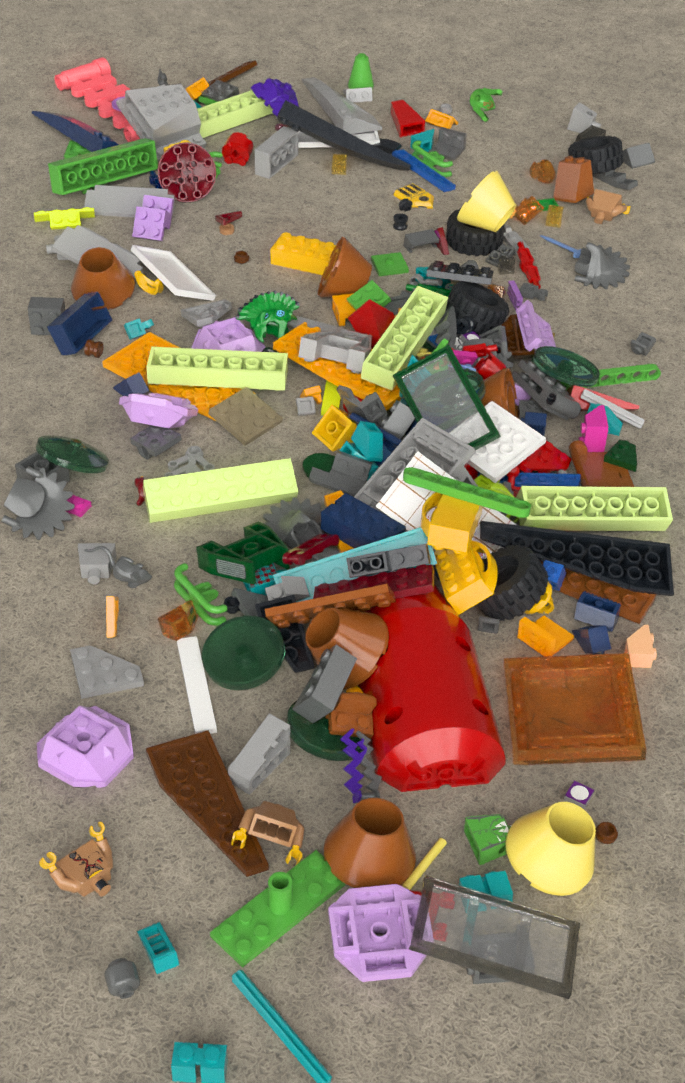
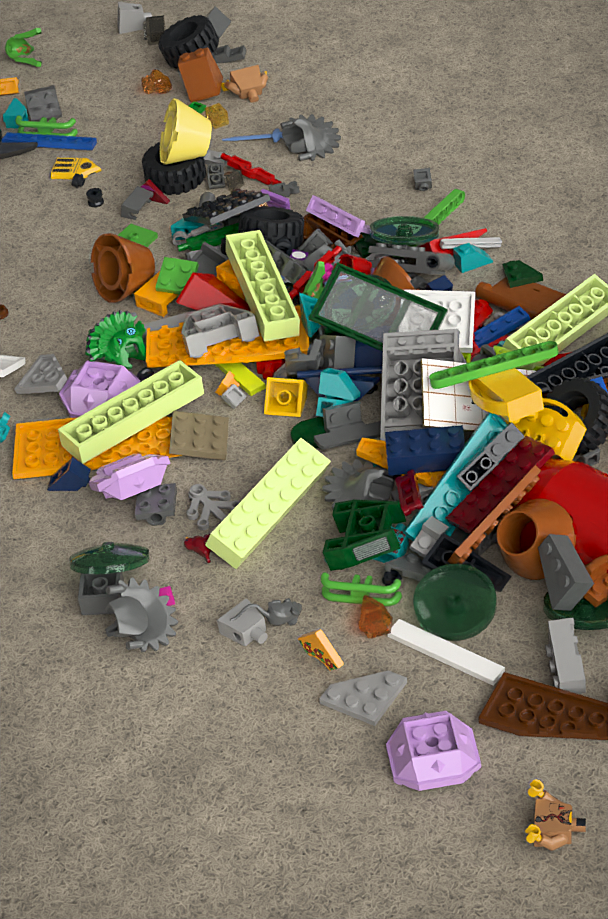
camera: 35 degrees left, 0 degrees up
(301, 253) = (55, 274): yellow piece -> none
(595, 430) = (484, 265): dark pink slope -> none

